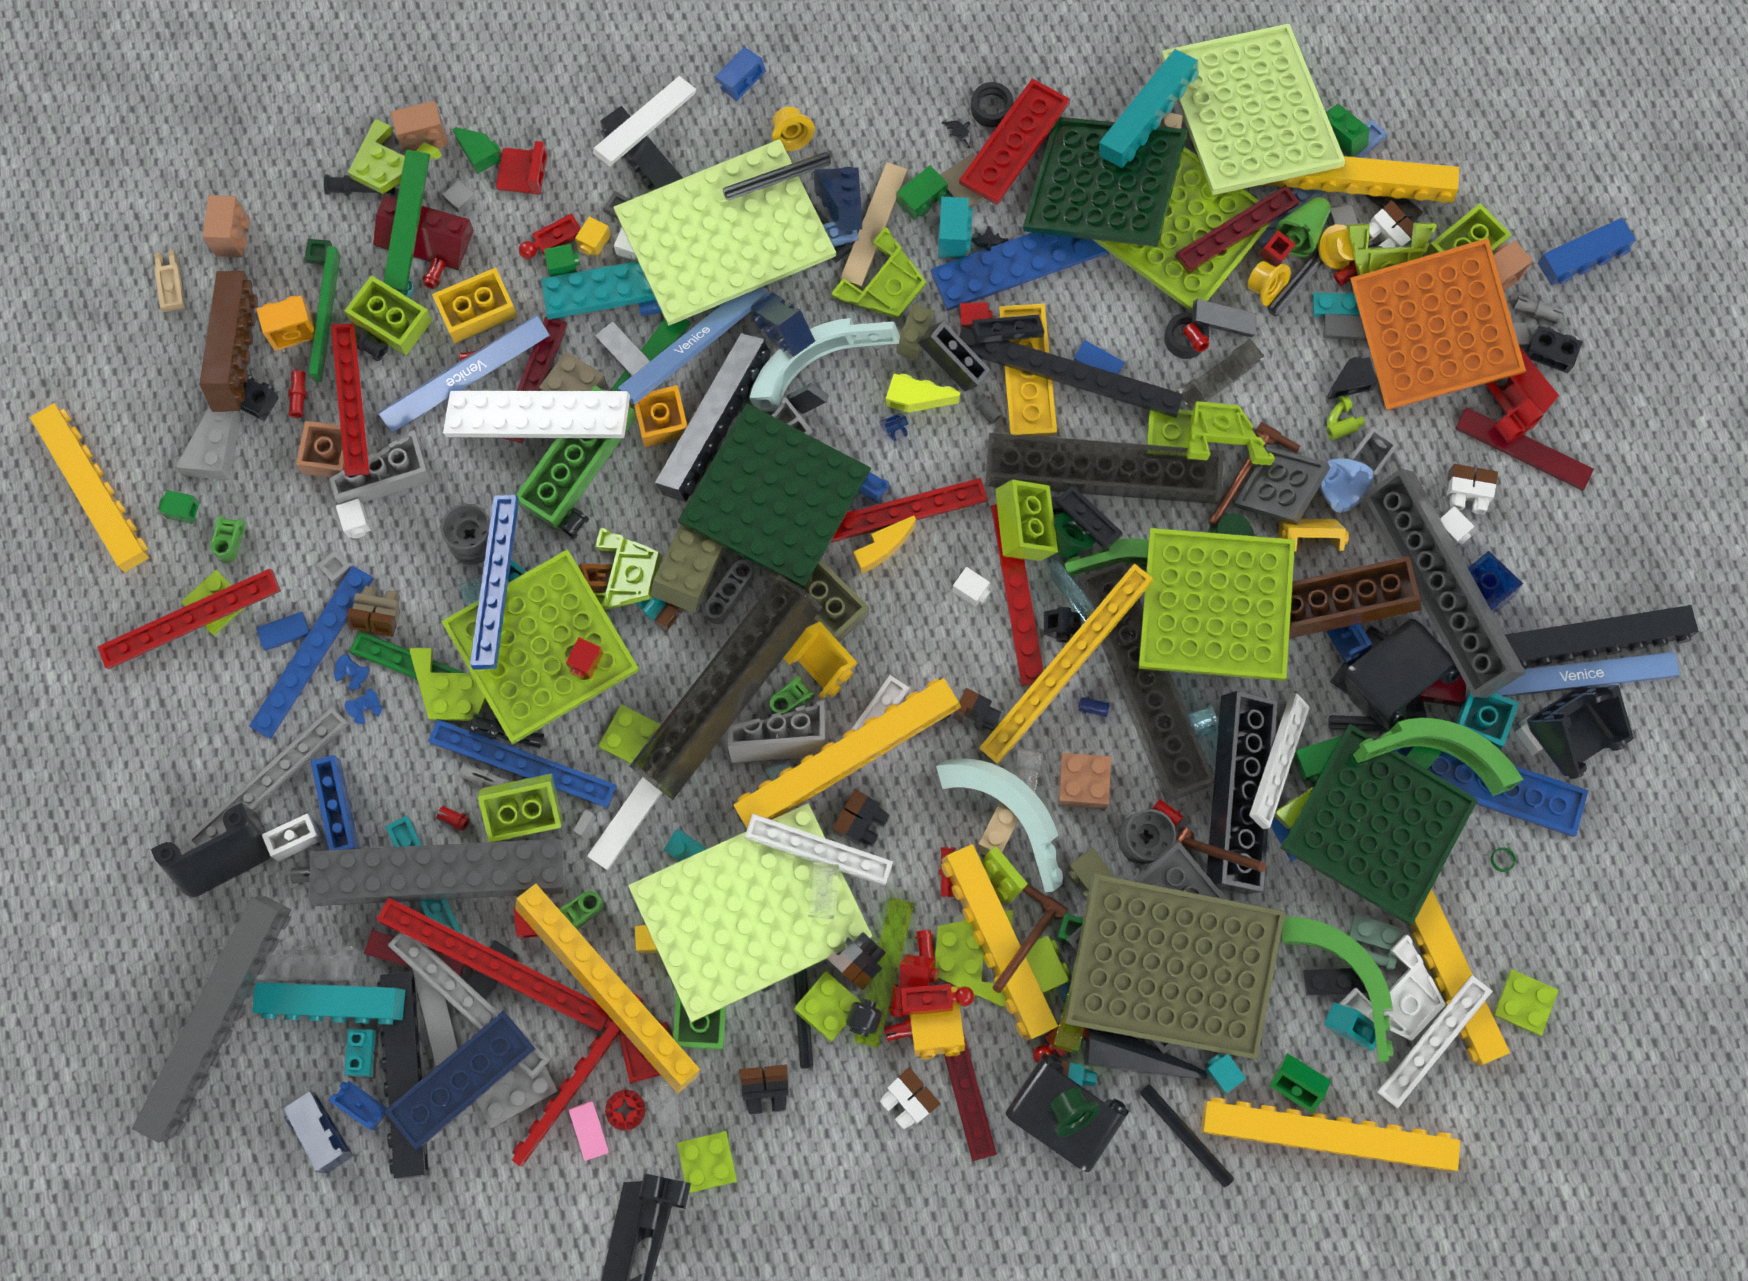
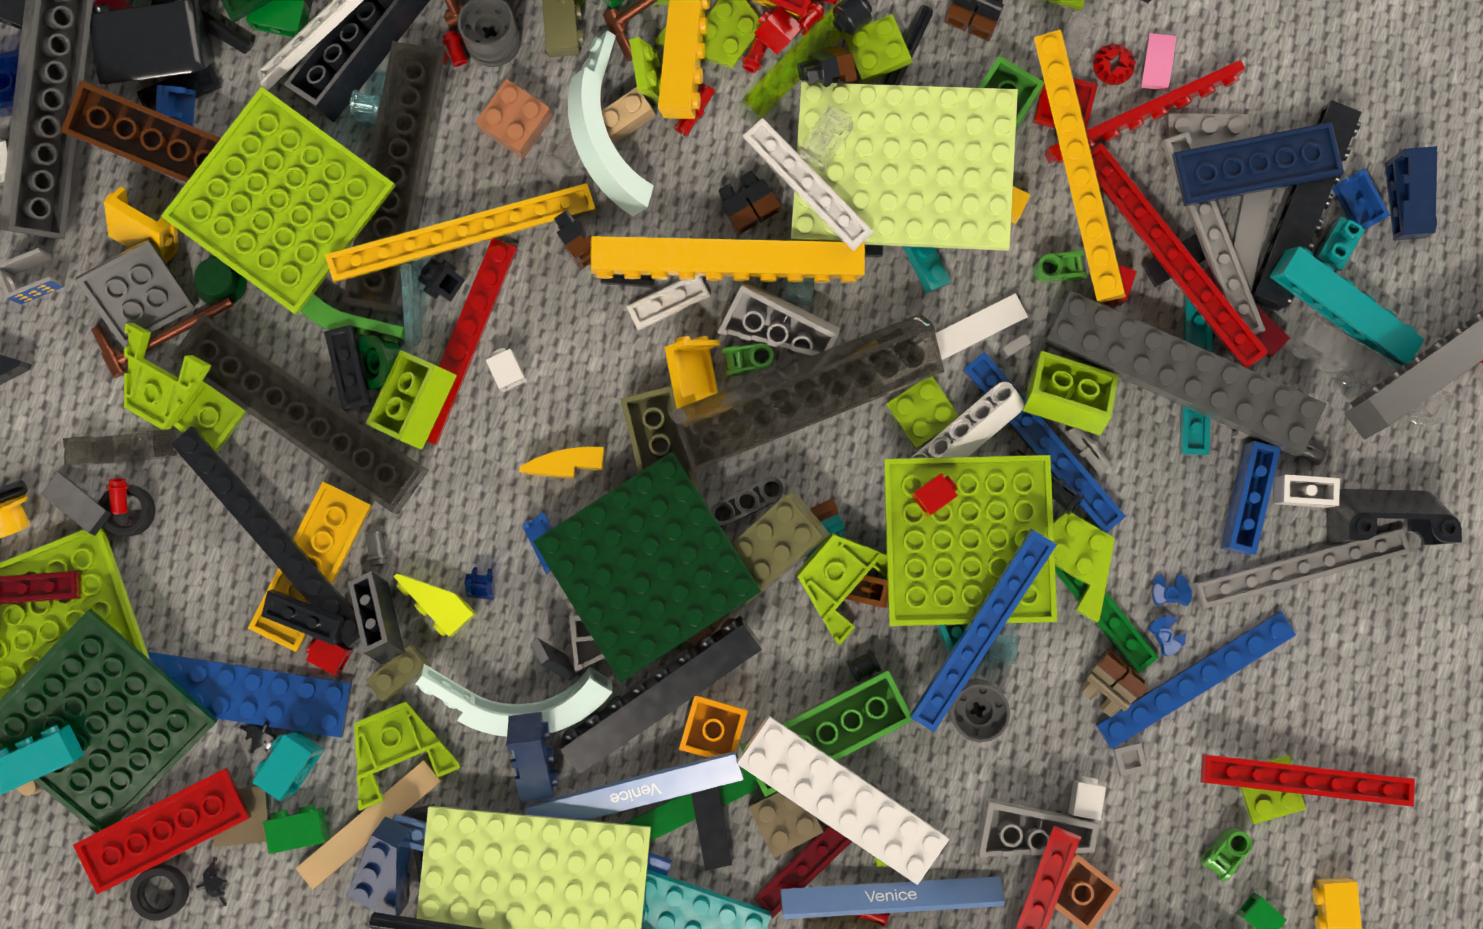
camera: 150 degrees left, 10 degrees up
(283, 631) = (1214, 718): blue tile -> none
(453, 818) = (1138, 426): red pin -> none
(583, 741) = (975, 424): none -> white beam
(918, 505) = (510, 484): red plate -> none
(1093, 706) = (462, 188): clear blue pin -> none
(1096, 357) = (232, 537): blue tile -> none
(1337, 430) = (28, 322): lime plant -> none
(1346, 483) = (70, 260): light blue hair -> none

